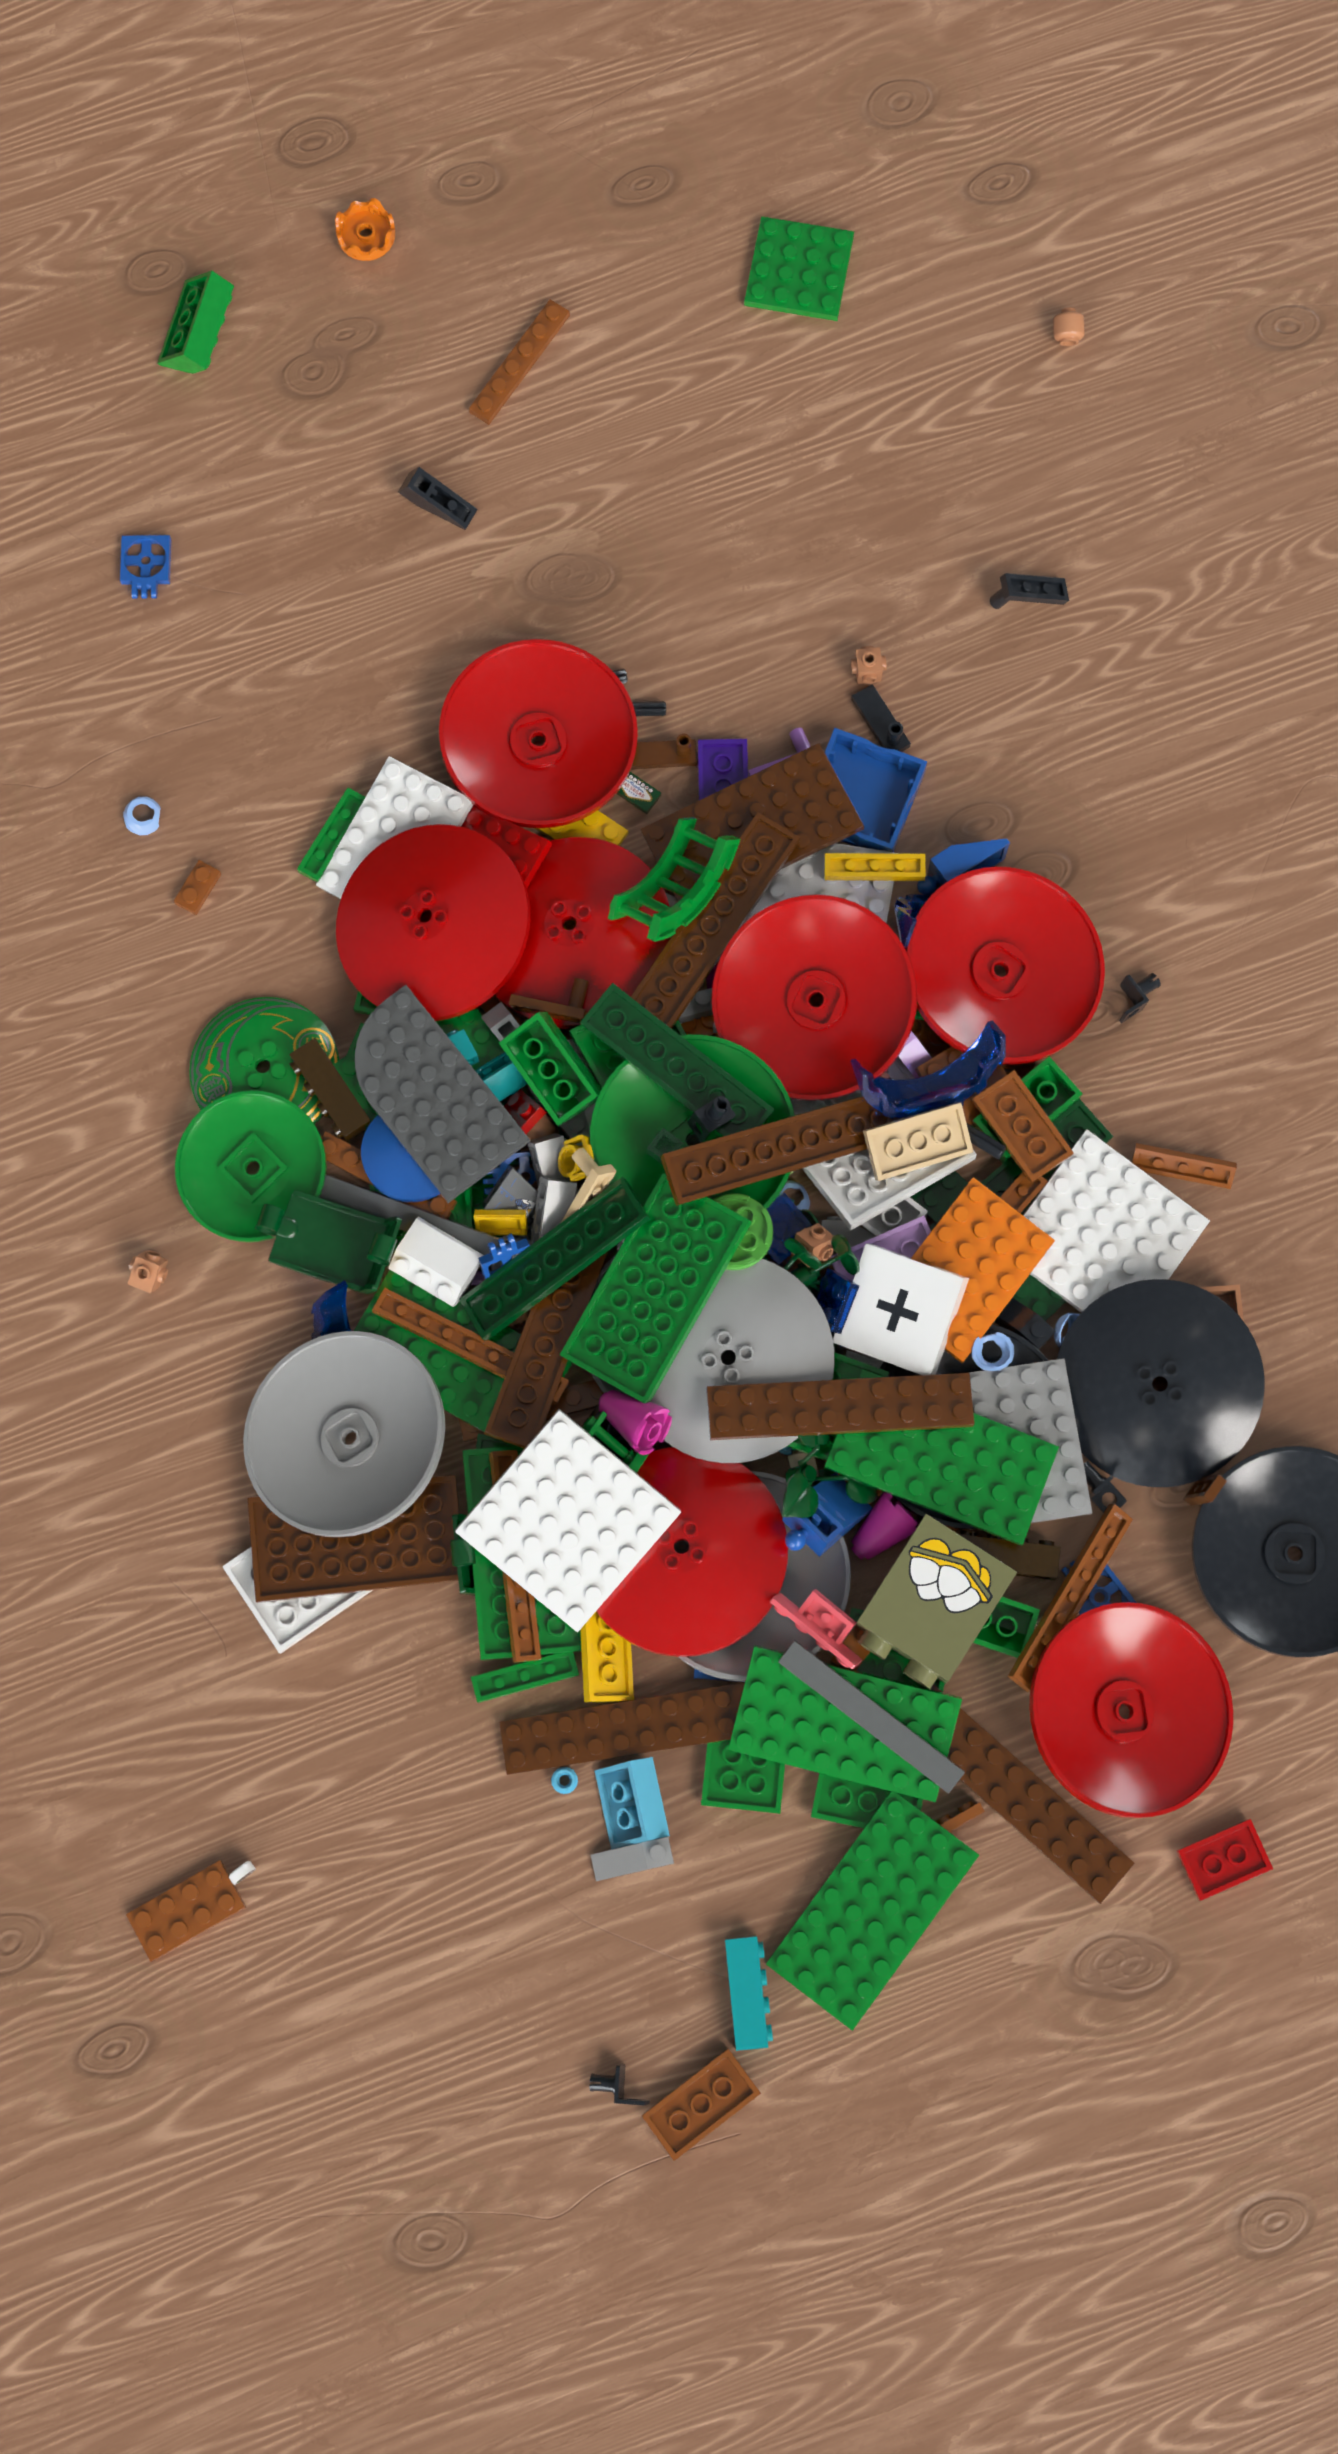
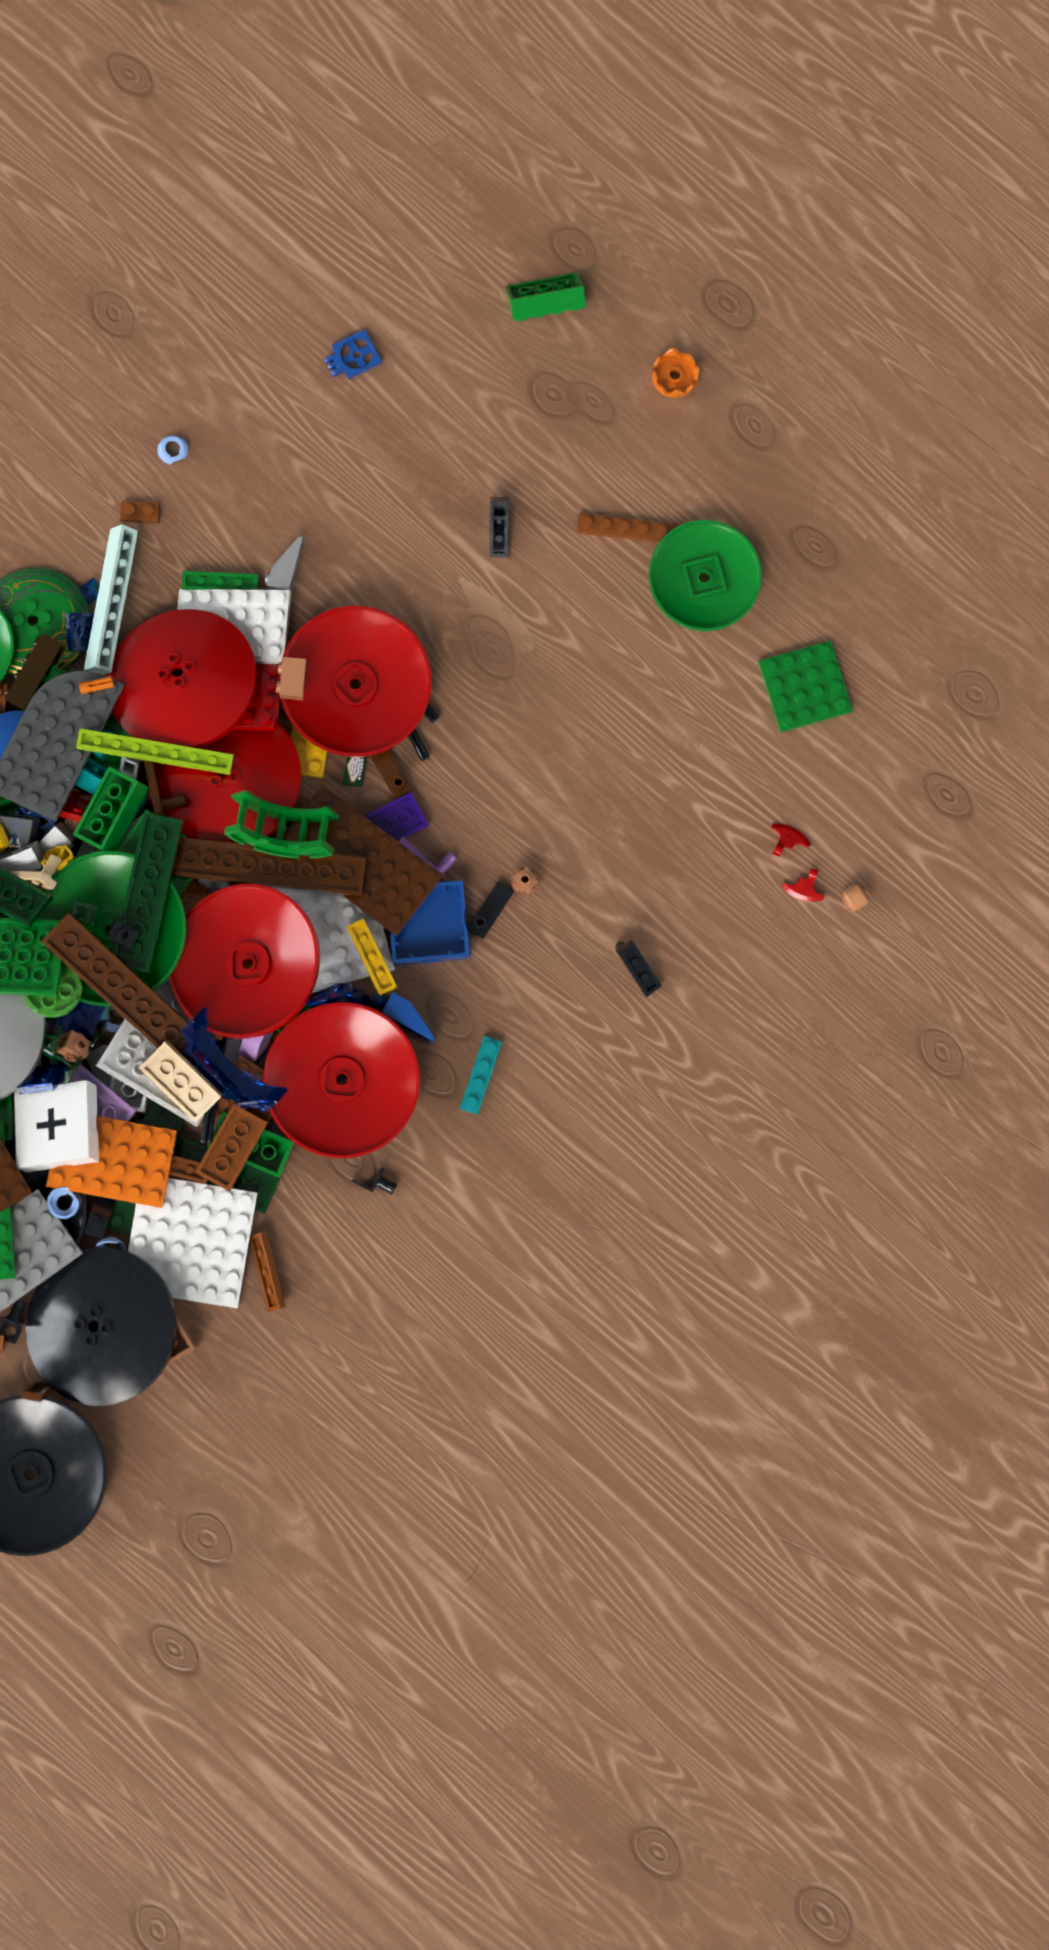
camera: 55 degrees right, 5 degrees up
(262, 986) = (90, 590): none -> clear blue tile
(289, 962) = (110, 600): none -> light aqua brick
(311, 1011) = (78, 630): none -> clear blue plate
(361, 756) = (284, 570): none -> light grey slope
(391, 1012) = (95, 685): none -> orange piece
(501, 793) = (292, 678): none -> nougat brick
(508, 983) = (154, 751): none -> lime plate
(625, 278) = (712, 550): none -> green dish
(963, 367) = (788, 838): none -> red piece
(1028, 377) = (804, 888): none -> red piece
(1068, 822) = (480, 1075): none -> teal plate

